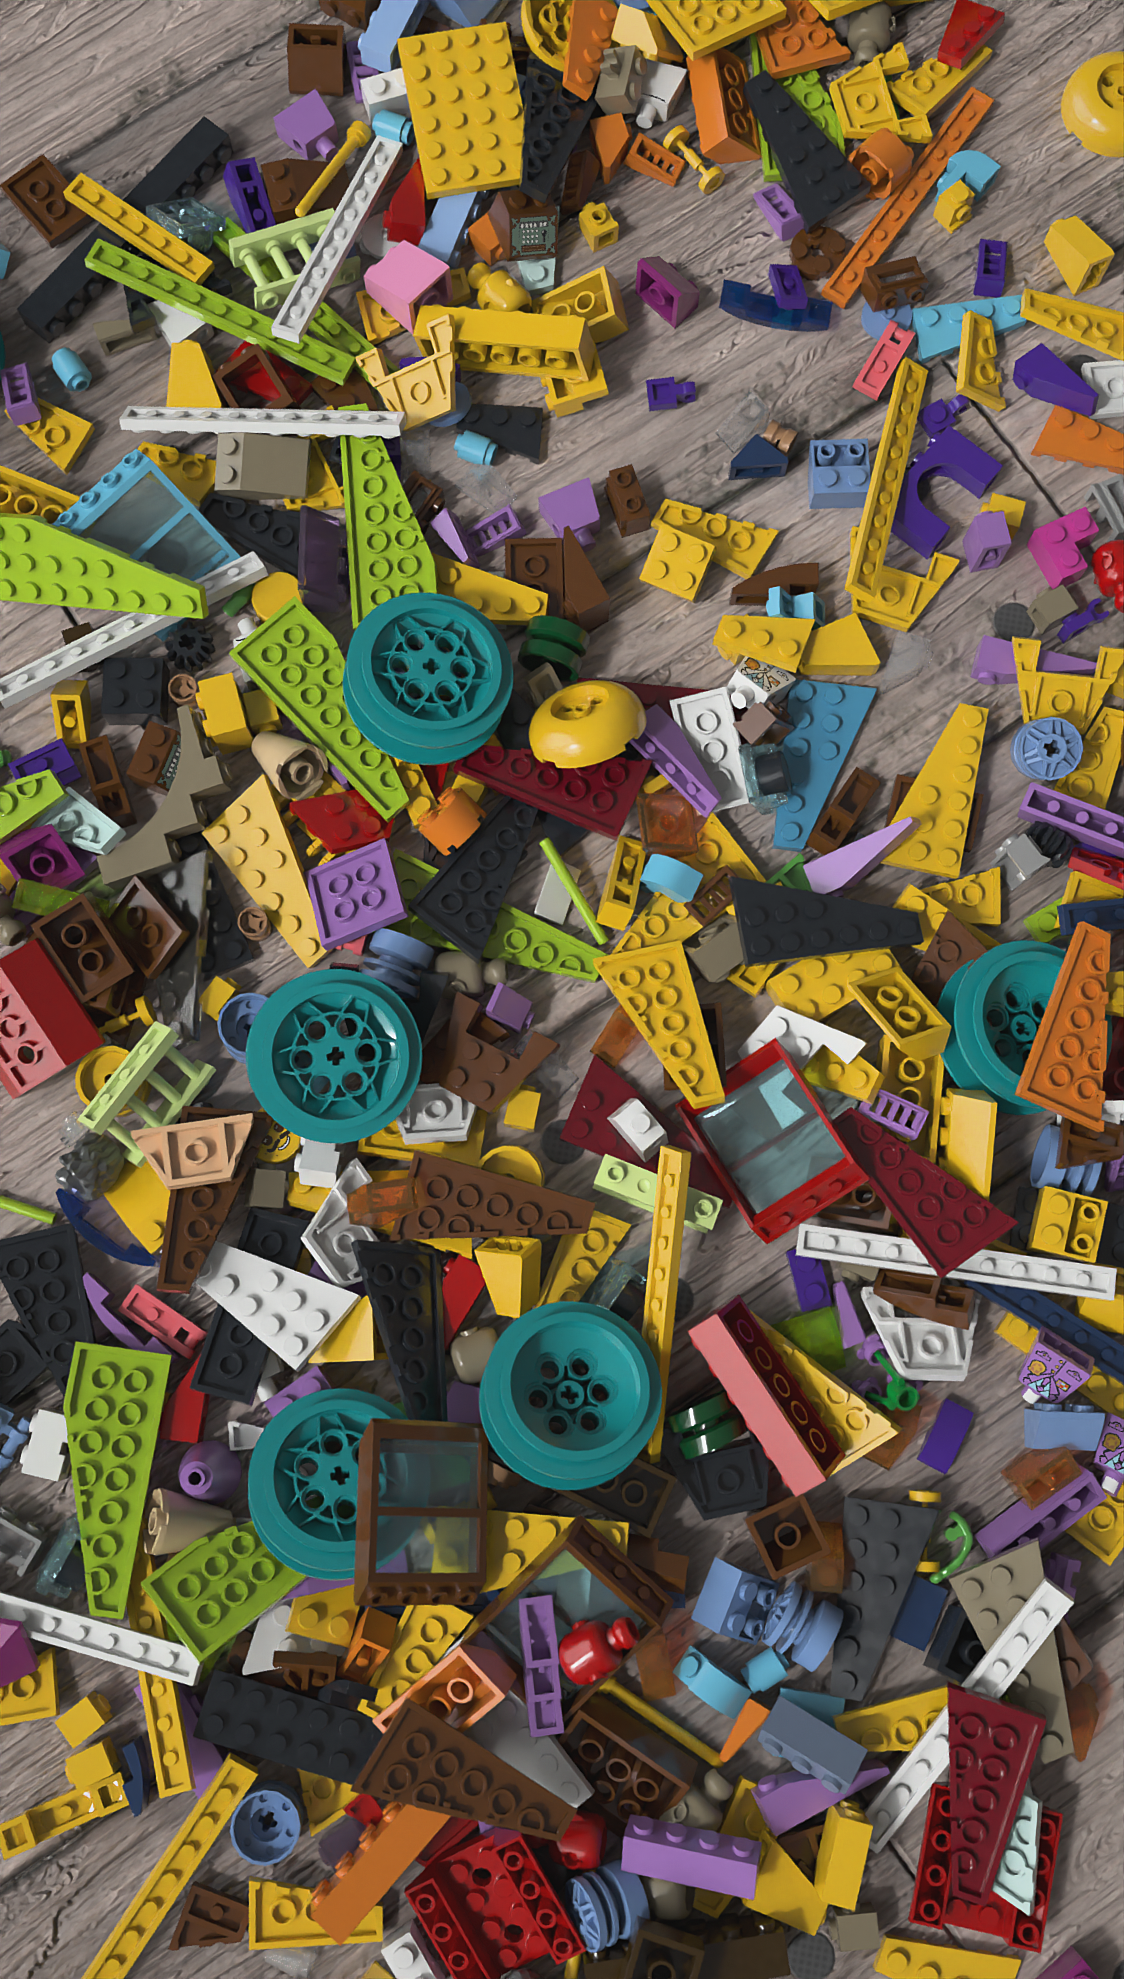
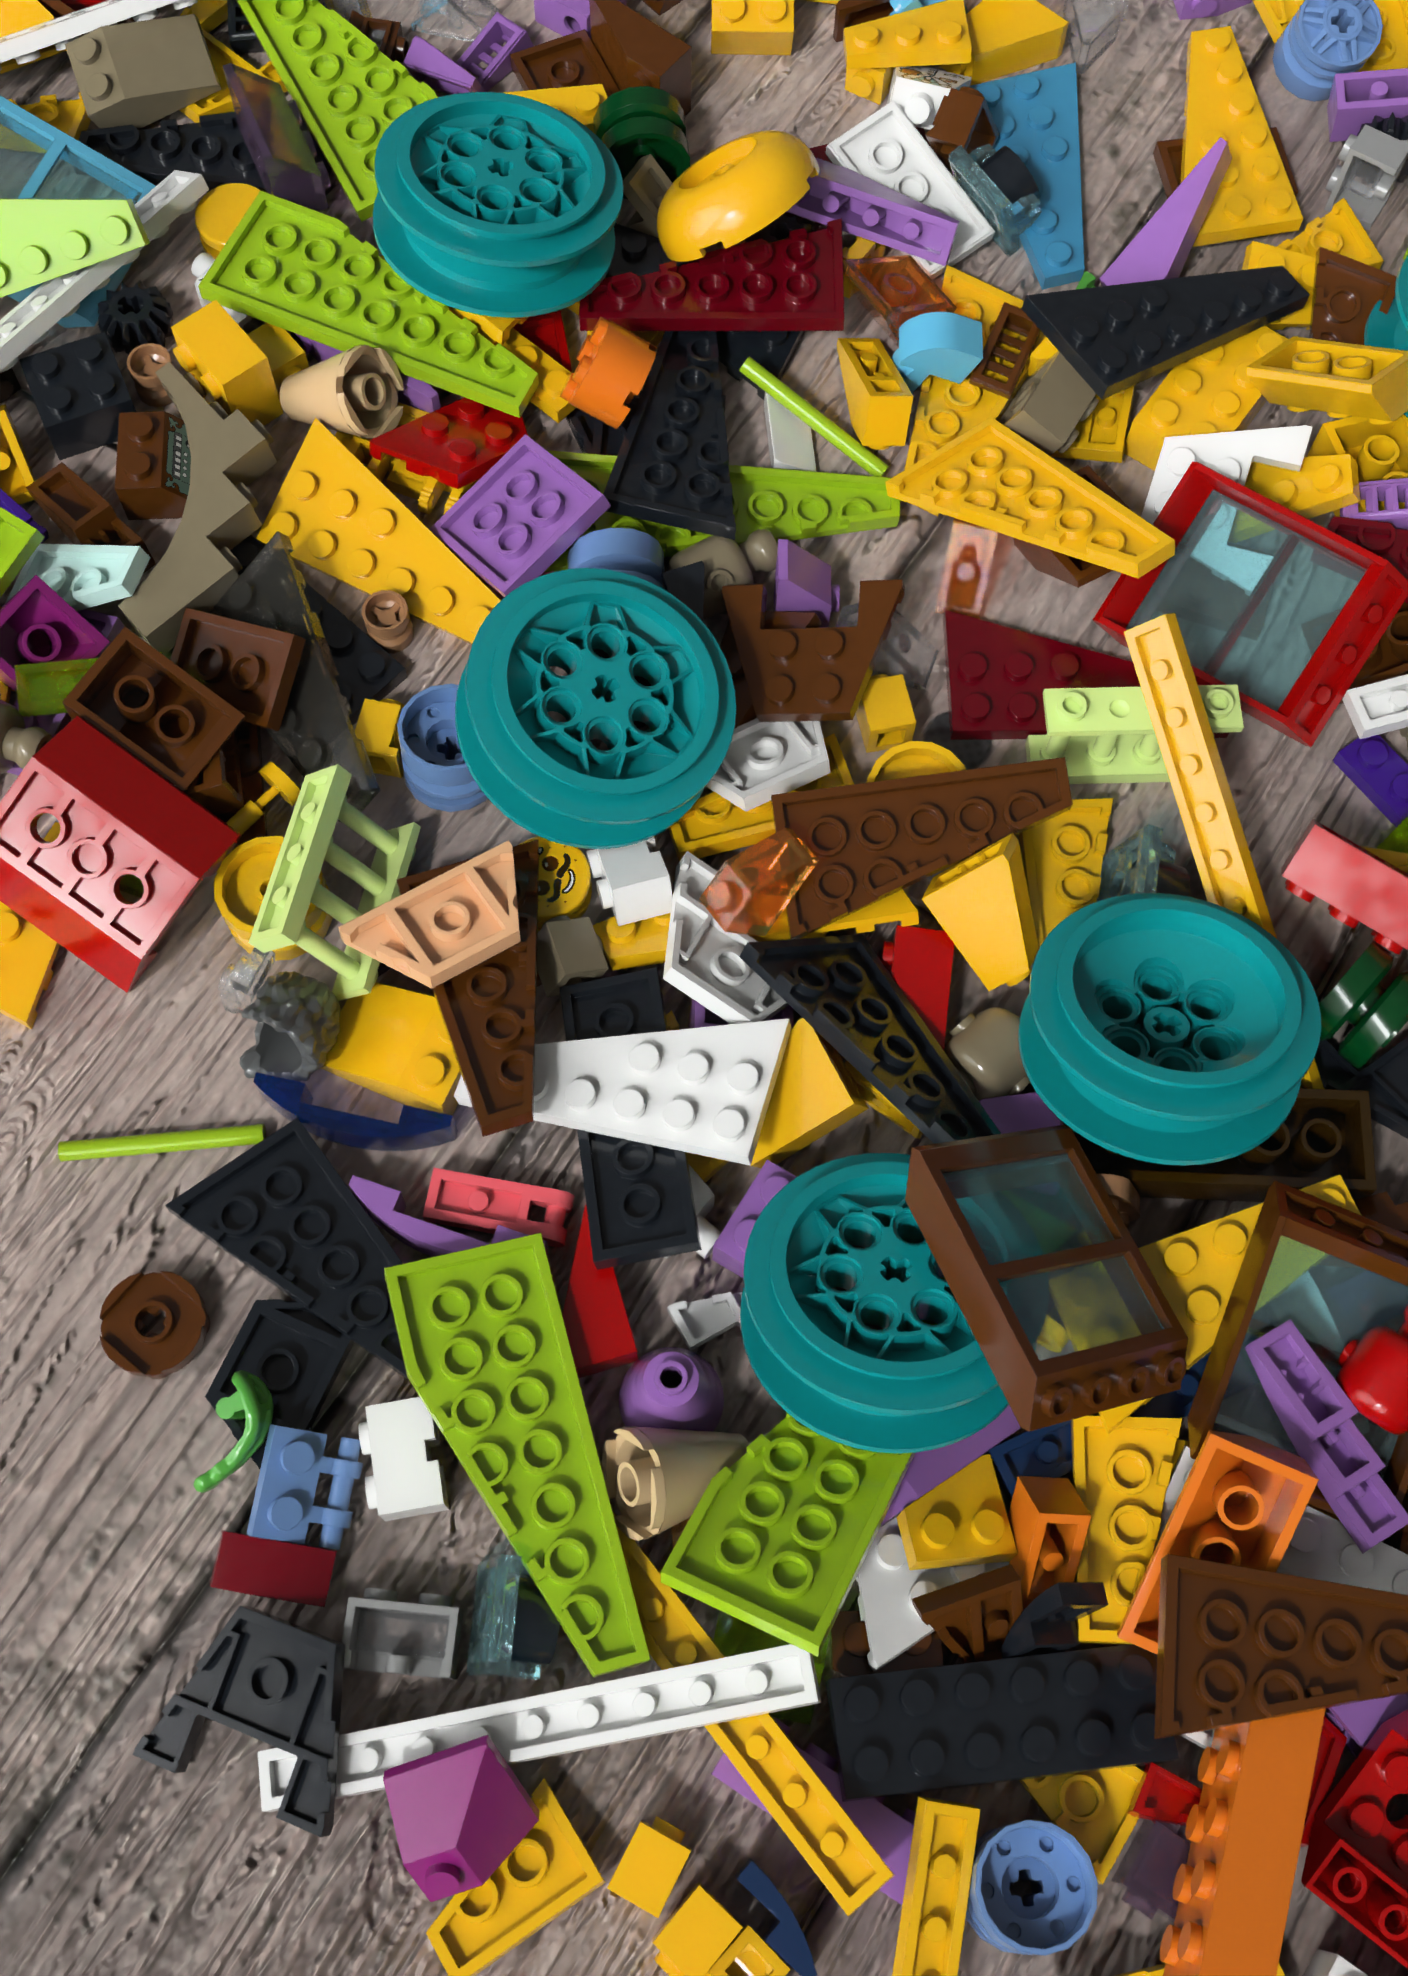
camera: 25 degrees left, 10 degrees down
(238, 600) = (180, 237): bright green arm -> none
(639, 1128) = (1062, 653): white torso -> none
(843, 812) = (1112, 210): reddish brown slope -> none

